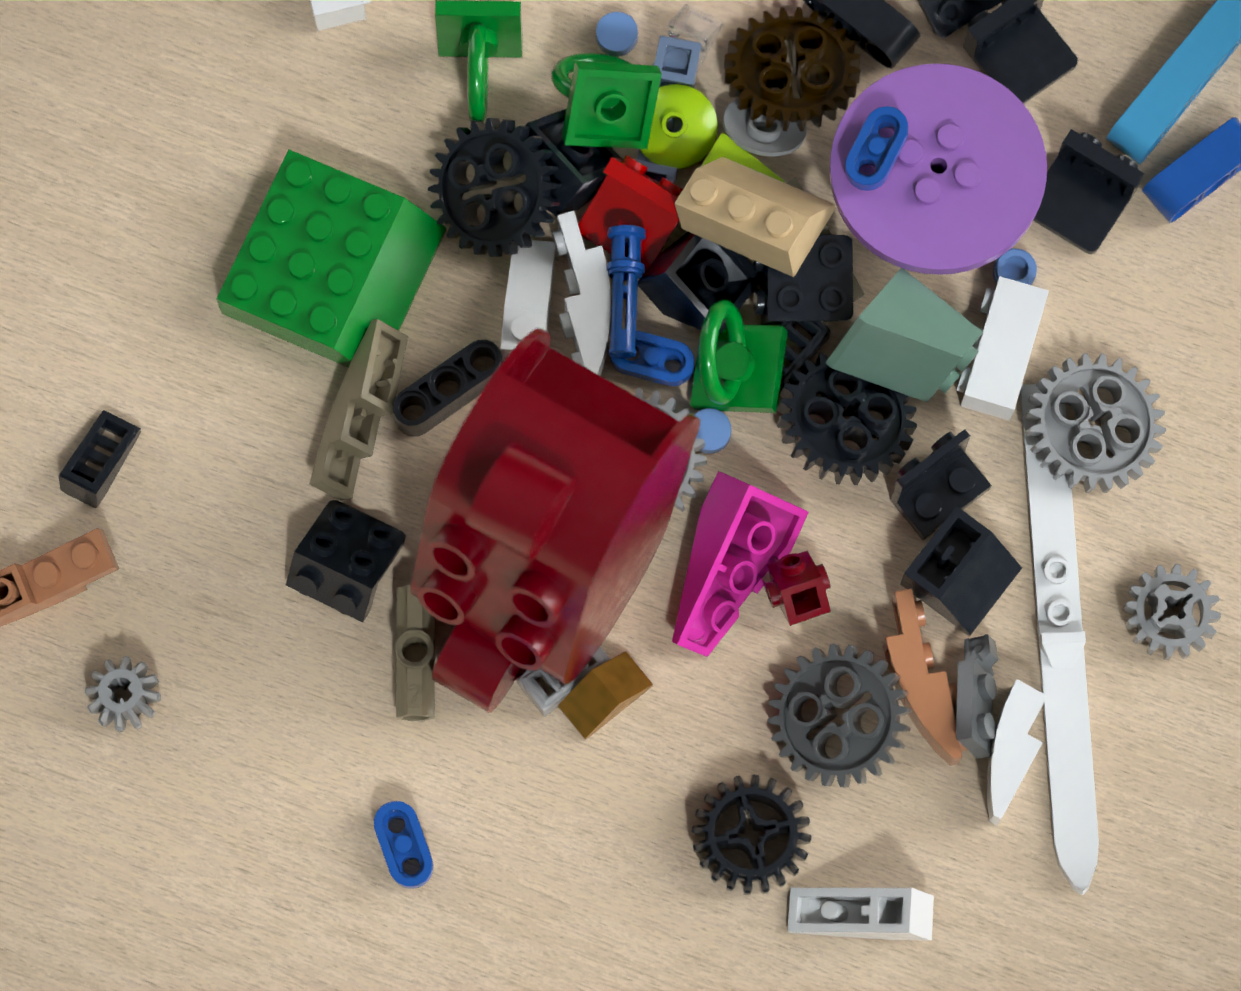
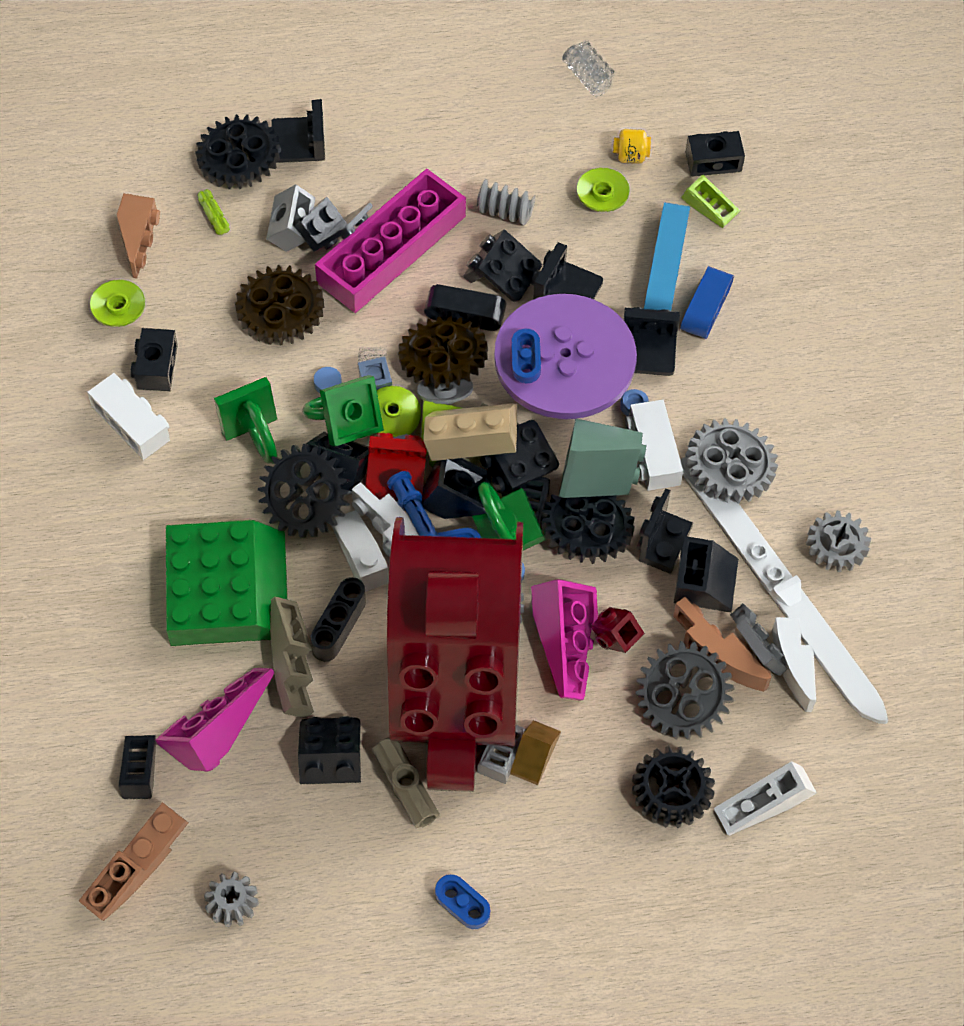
camera: 30 degrees left, 15 degrees down
(209, 459) = (211, 732): none -> dark pink wedge

